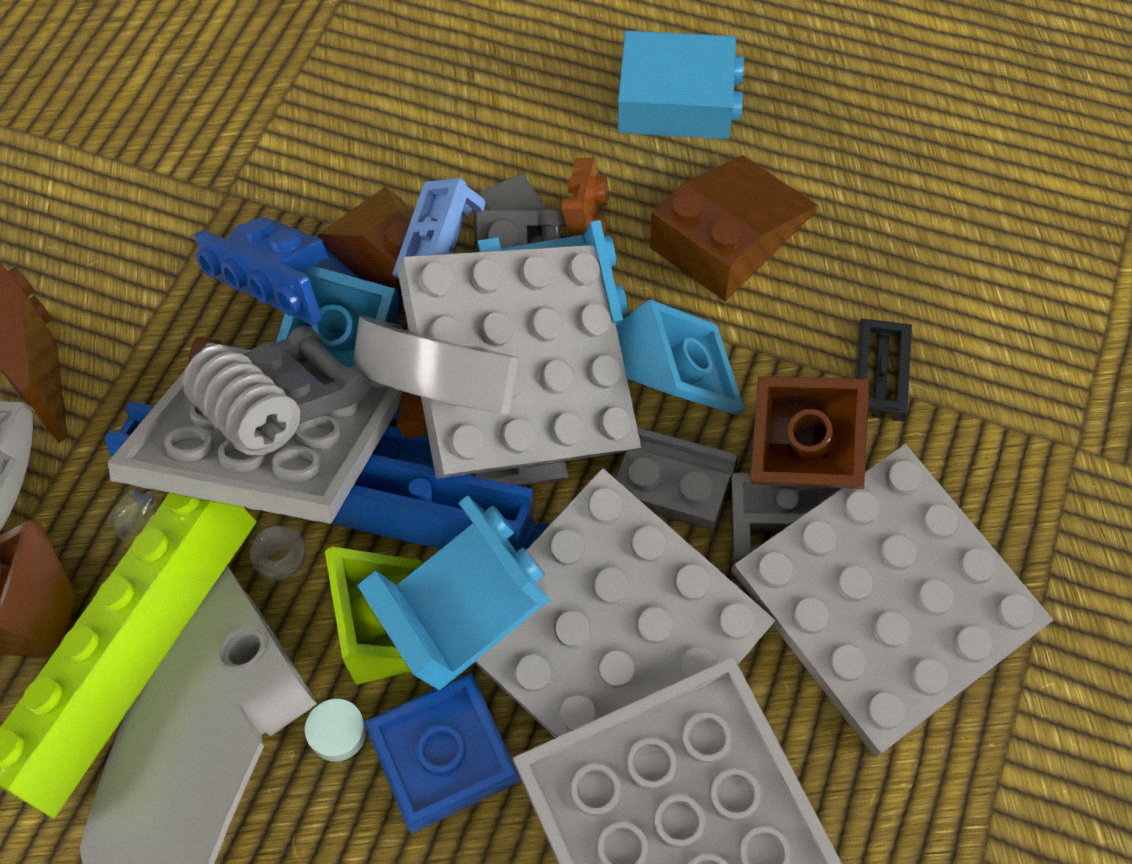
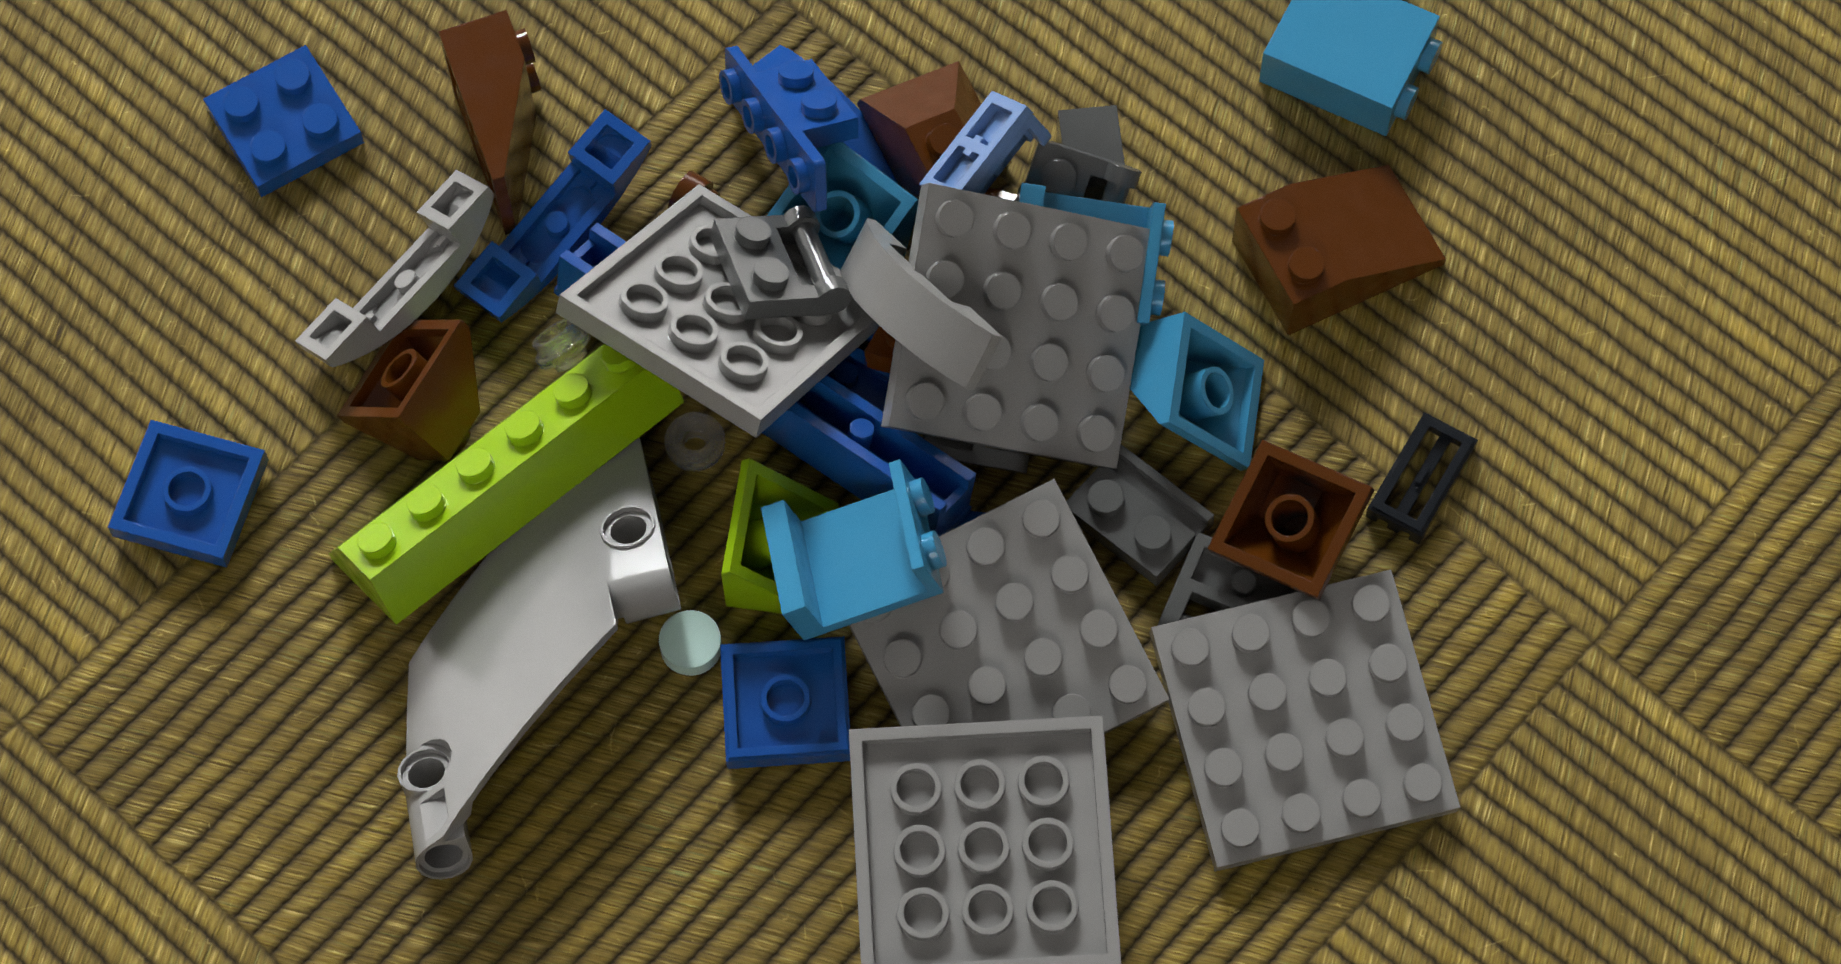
camera: 20 degrees right, 5 degrees up
(121, 368) = (561, 220): none -> blue slope
(240, 400) = (710, 276): light grey piece -> none
(589, 195) = (1182, 153): dark orange wing -> none

